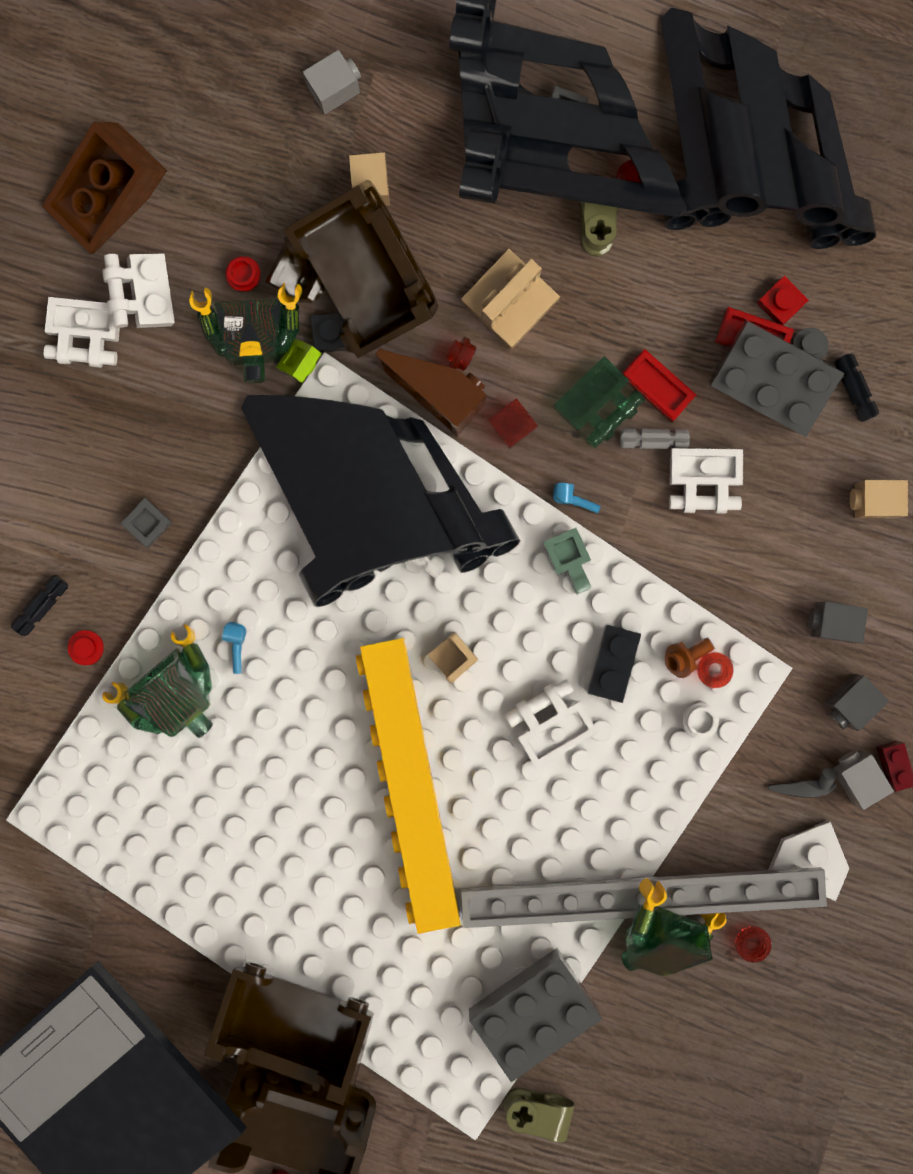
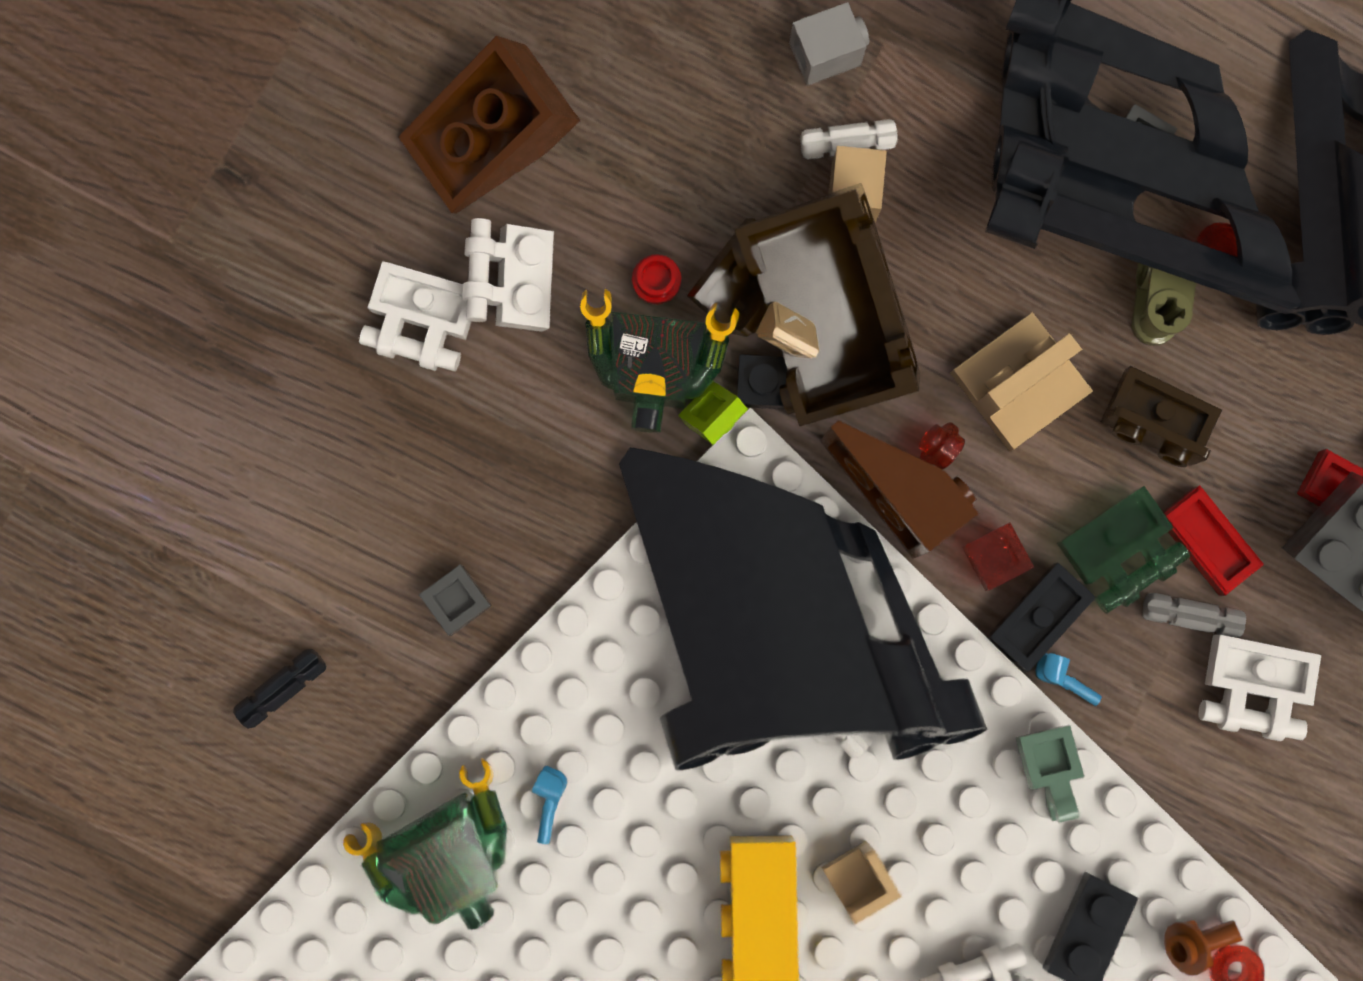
camera: 10 degrees right, 5 degrees down
(85, 647) = (333, 762): red plate -> none
(338, 293) = (789, 331): none -> tan slope
(362, 145) = (859, 135): none -> white axle
(549, 459) = (1041, 617): none -> black plate
(609, 306) = (1161, 417): none -> dark brown bracket

